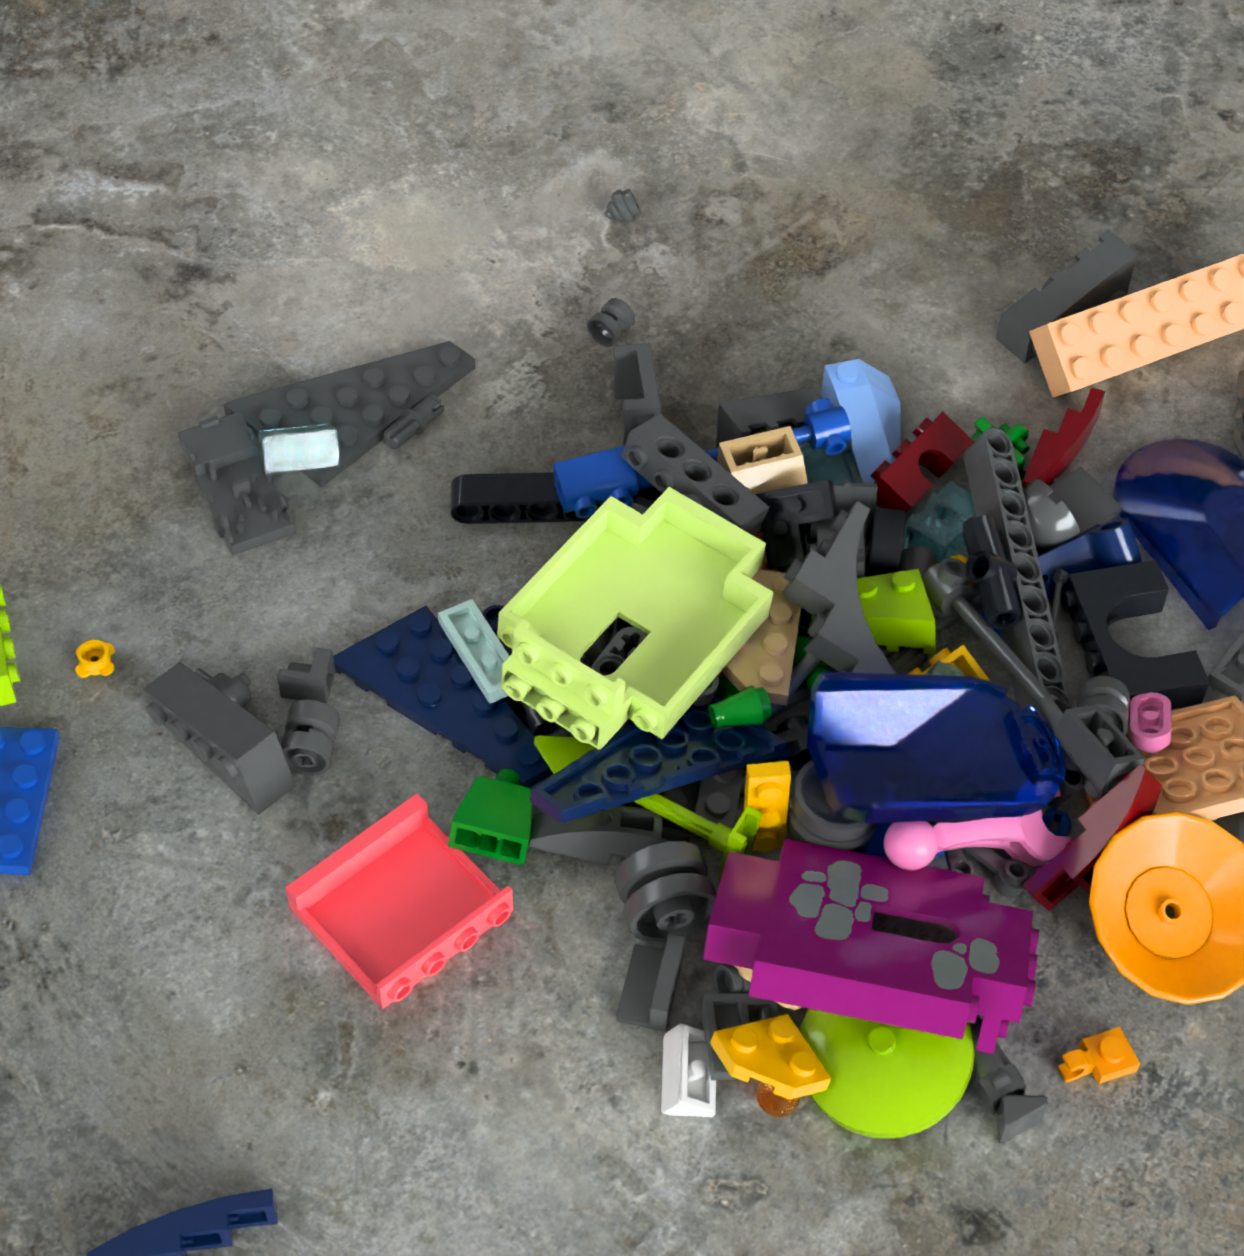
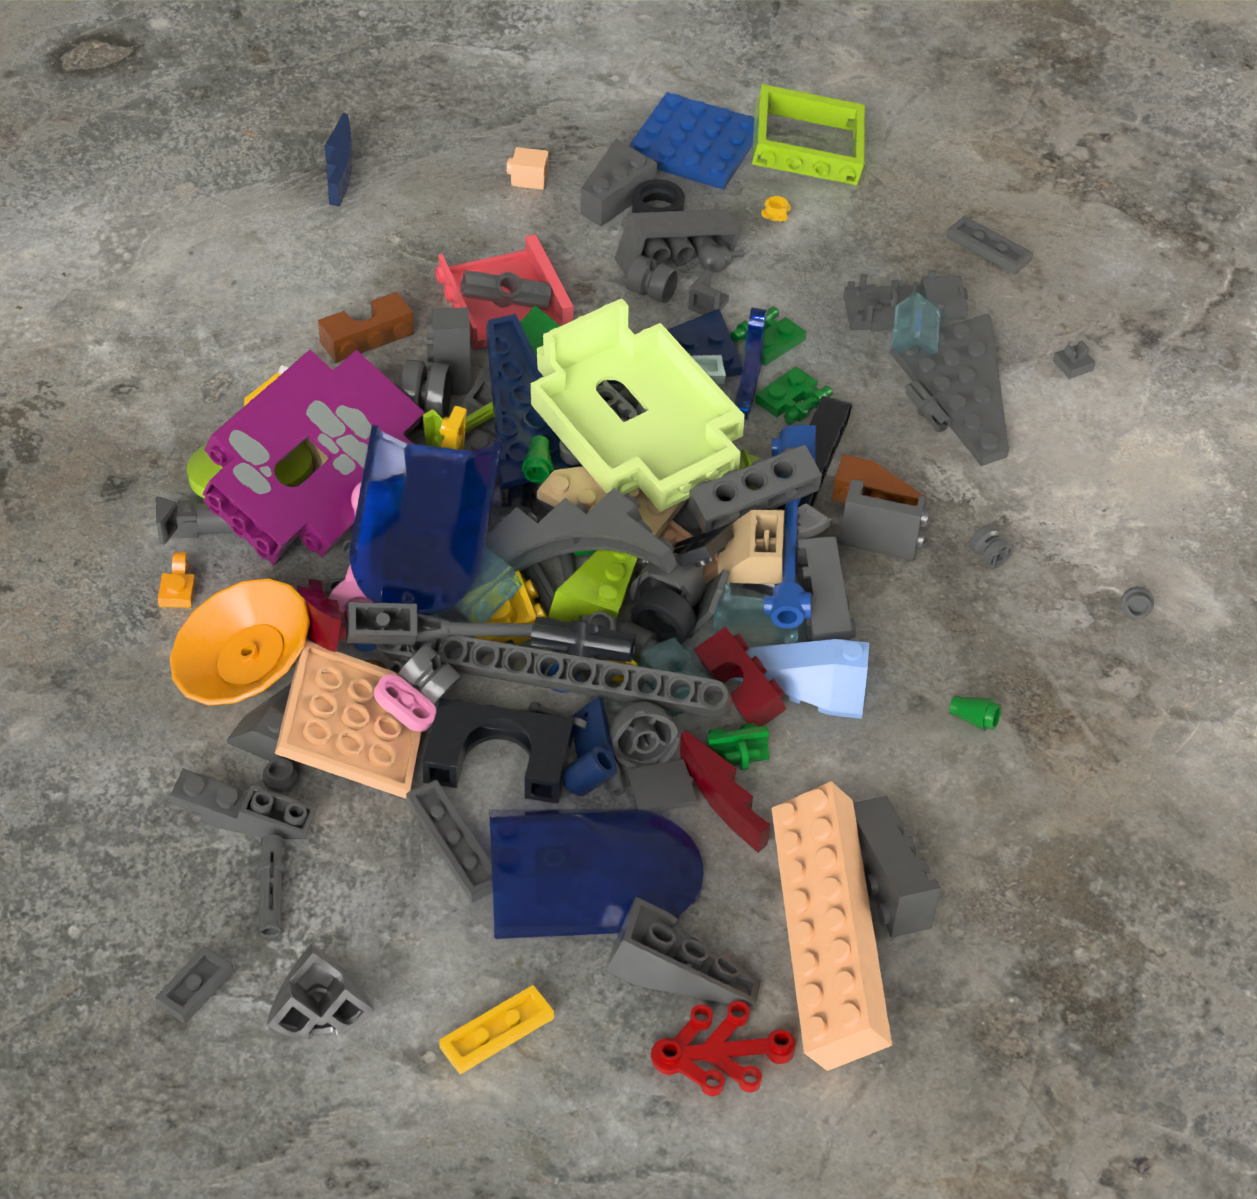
camera: 110 degrees right, 5 degrees down
(89, 430) = (989, 244): none -> dark grey plate
(113, 968) = (528, 168): none -> light nougat brick
(115, 843) = (613, 182): none -> dark grey wedge
(131, 763) = (657, 190): none -> black tyre
(269, 320) = (1074, 360): none -> dark grey tile
(353, 592) = (778, 337): none -> green plate
(422, 878) = (488, 288): none -> dark grey piece
(435, 589) = (752, 362): none -> clear blue beam
(446, 558) = (788, 391): none -> green plate
(524, 1011) = (389, 322): none -> dark orange arch
(575, 426) = (877, 482): none -> dark orange slope
(580, 889) = (451, 345): none -> dark grey wedge
(838, 288) = (977, 711): none -> green cone

